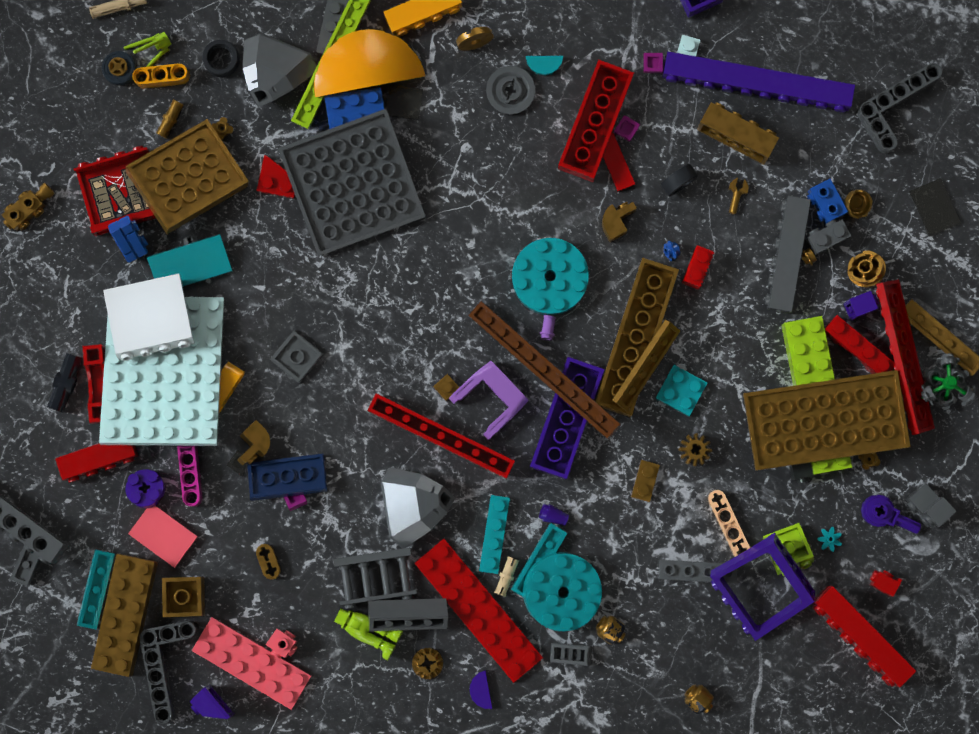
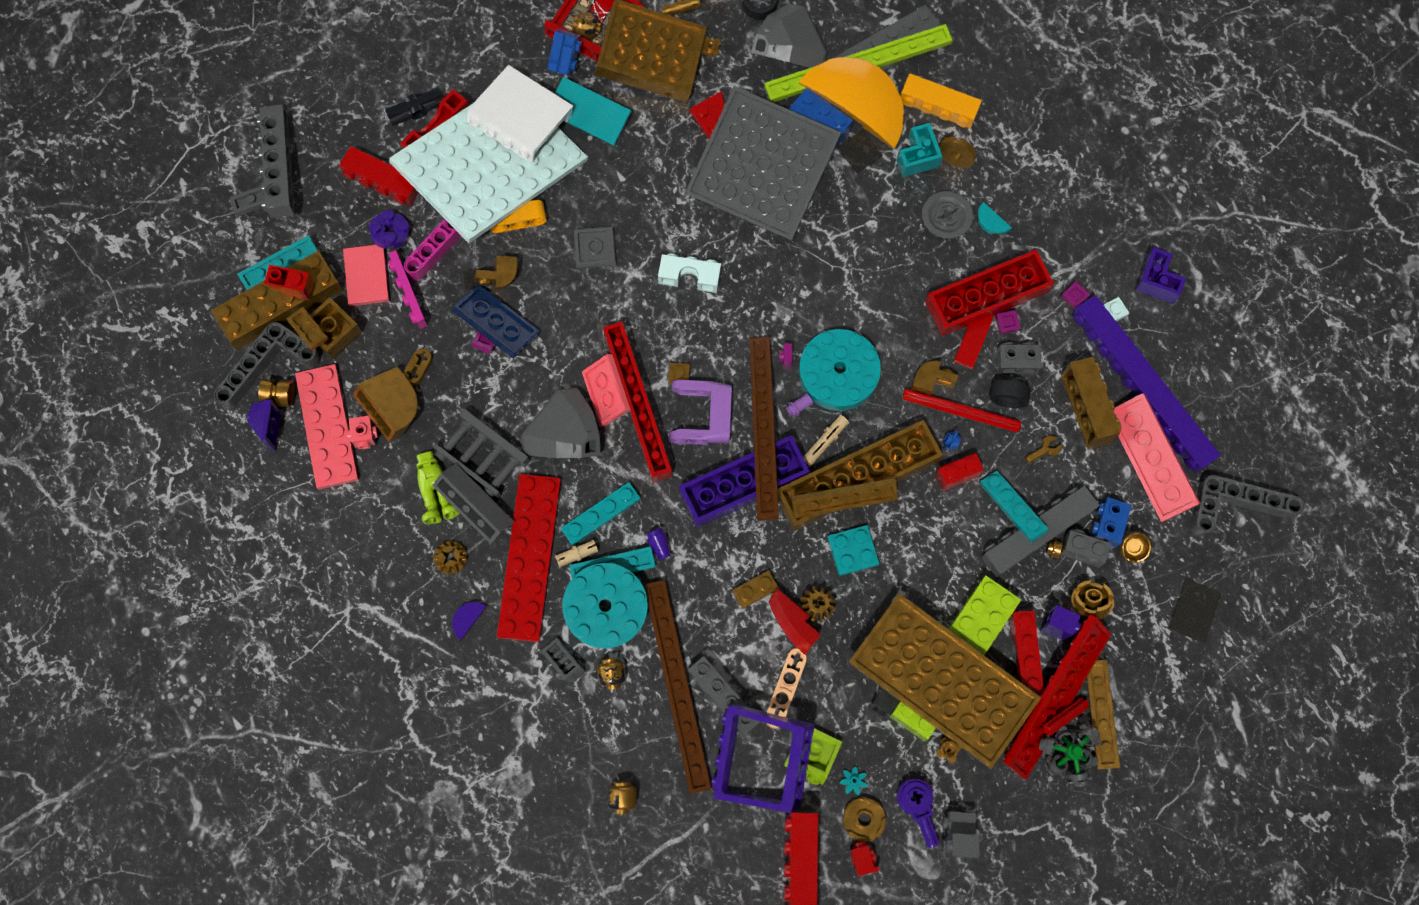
camera: 40 degrees right, 10 degrees down
(120, 202) = (586, 25): none -> pearl gold head
(126, 597) = (289, 281): none -> red slope
(173, 615) = (307, 328): none -> pearl gold plate
(195, 515) = (409, 296): none -> dark pink plate
(195, 676) = (280, 393): none -> pearl gold wheel
(280, 606) = (388, 402): none -> pearl gold brick
(392, 298) = (674, 267): none -> light aqua arch
(412, 449) = (606, 390): none -> coral tile
(452, 61) = (922, 154): none -> teal brick
(505, 303) = (786, 355): none -> magenta plate
(589, 335) = (840, 423): none -> tan pin
(656, 221) = (962, 410): none -> red axle
(660, 147) = (1018, 358): none -> dark grey brick
(660, 594) = (677, 687): none -> reddish brown plate
(692, 478) = (793, 622): none -> red slope
(756, 256) = (1014, 506): none -> teal plate
(813, 129) = (1154, 459): none -> coral plate
(871, 553) = (876, 815): none -> pearl gold tile
(921, 363) = (1065, 716): none -> red axle

